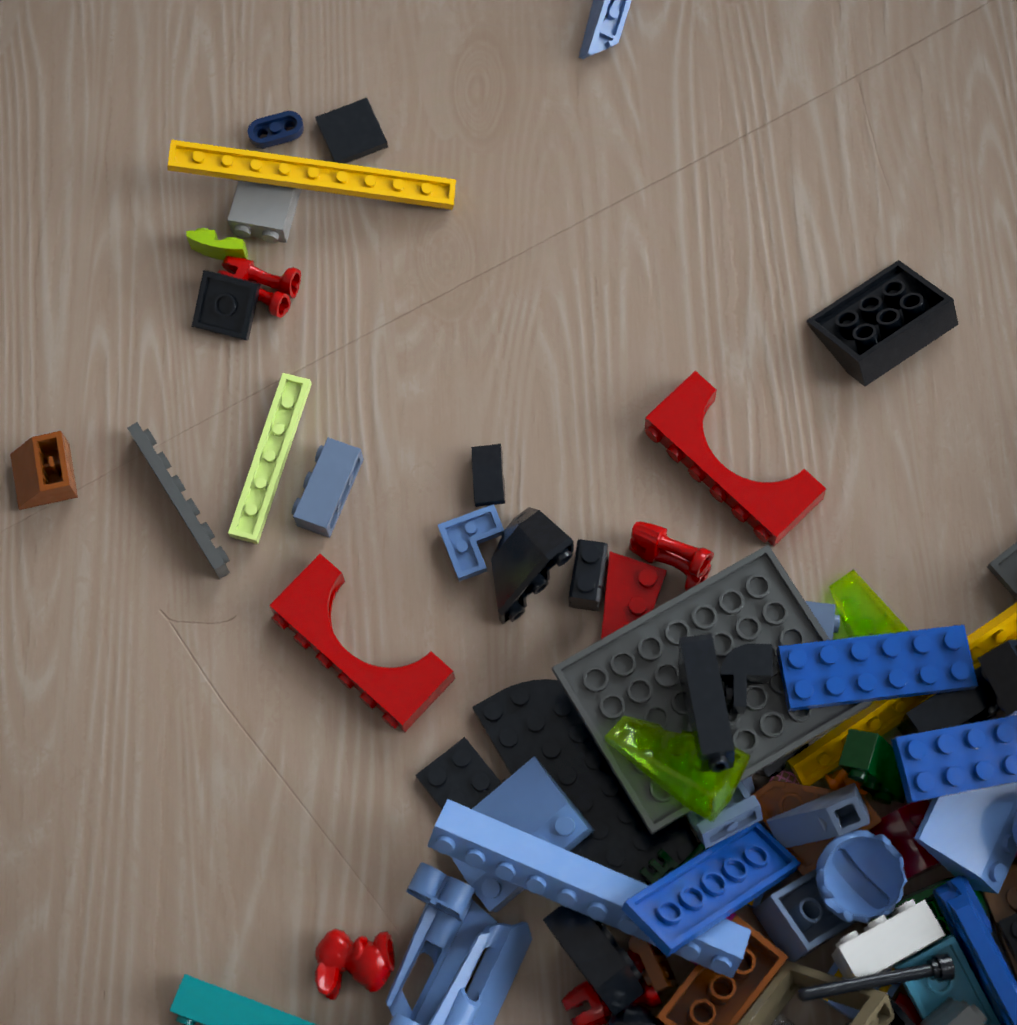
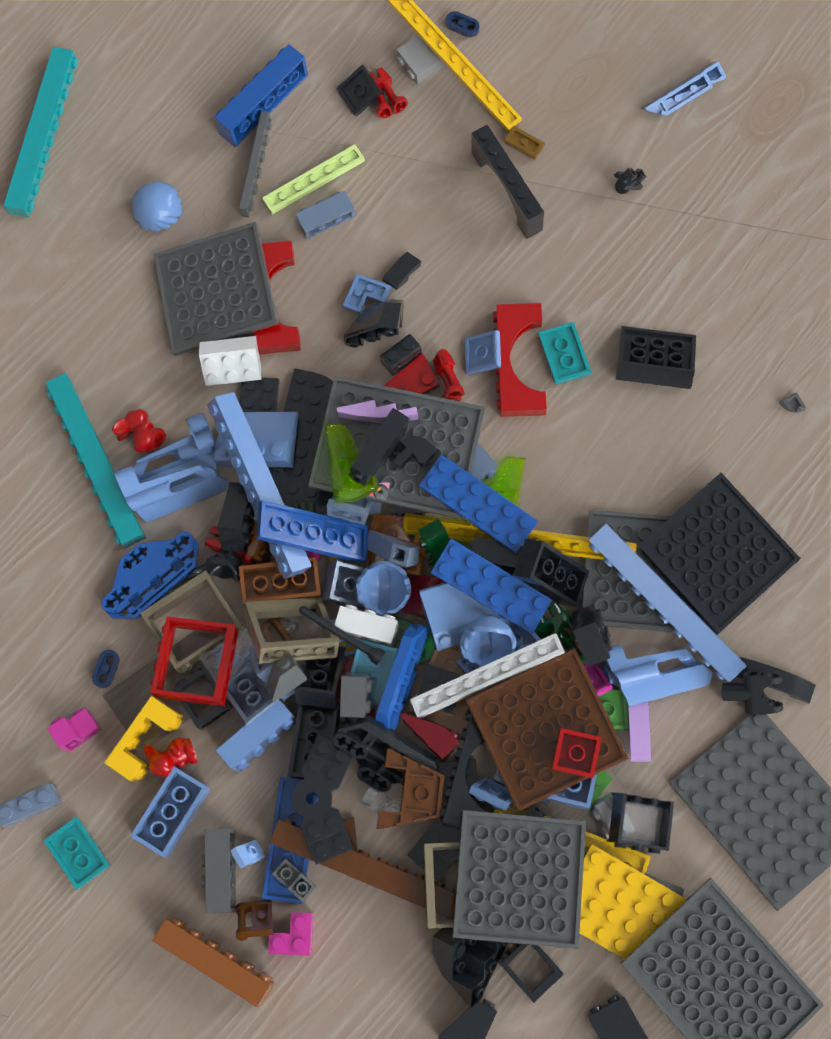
camera: 45 degrees right, 5 degrees up
(43, 471) = (209, 99): dark orange slope -> none
(101, 658) = (156, 206): none -> medium blue piece
(108, 409) = (261, 94): none -> blue brick
(207, 243) = (380, 55): lime slope -> none
(280, 695) = (215, 288): none -> dark grey plate
(351, 131) = (497, 55): black tile -> none
(388, 767) = (230, 360): none -> white brick
(485, 205) = (524, 142): none -> pearl gold plate
(573, 273) = (489, 151): none -> black arch
(645, 670) = (369, 412): none -> lavender slope
(652, 149) = (629, 180): none -> black hips
(682, 488) = (482, 352): none -> medium blue tile
(756, 758) = (382, 492): none -> clear tile
(775, 407) = (564, 353): none -> teal plate

